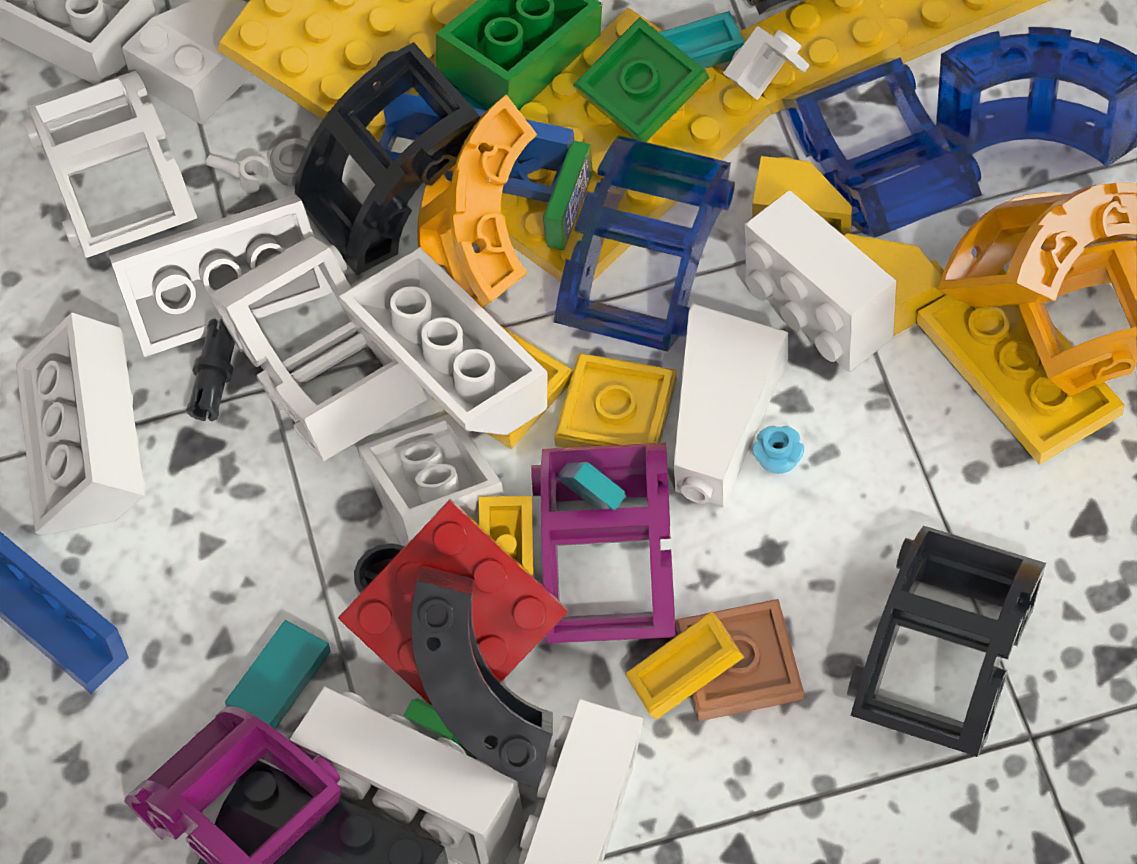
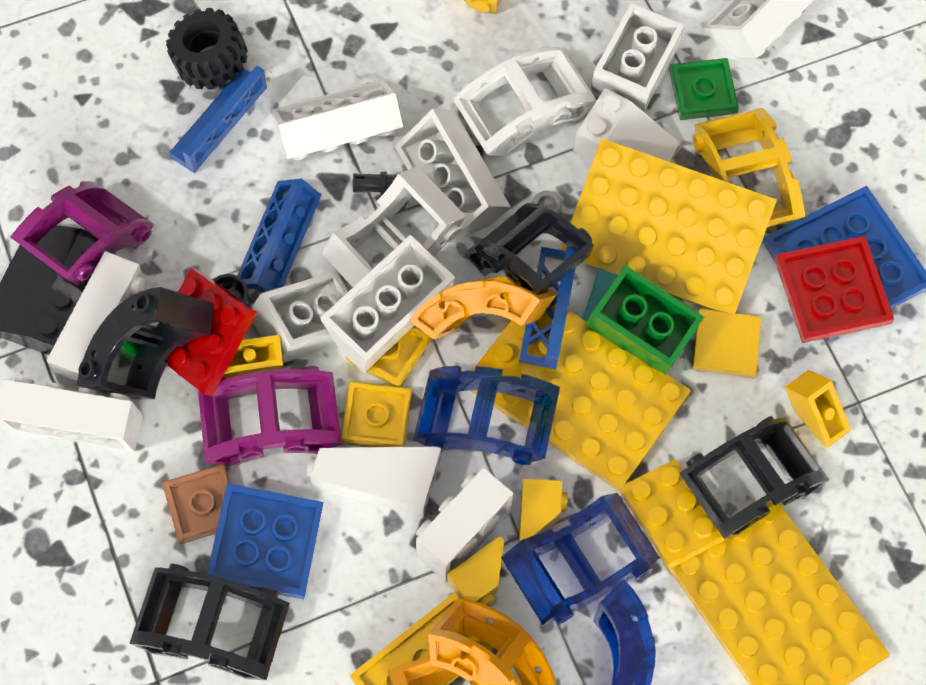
camera: 75 degrees right, 10 degrees up
(248, 166) = (535, 176): white hand -> none
(279, 673) = (180, 250): teal tile -> none
(282, 508) = (282, 237): none -> blue fence
(567, 195) = (517, 363): green tile -> none
(591, 485) = (294, 398): teal tile -> none
(641, 81) = (615, 399): green tile -> none
(684, 665) = (189, 470): yellow tile -> none
(707, 40) = (653, 431): teal tile -> none
(761, 59) = (639, 473): white bracket -> none
(778, 460) = (344, 520): medium azure plate -> none
(815, 560) = (265, 540): none -> blue plate

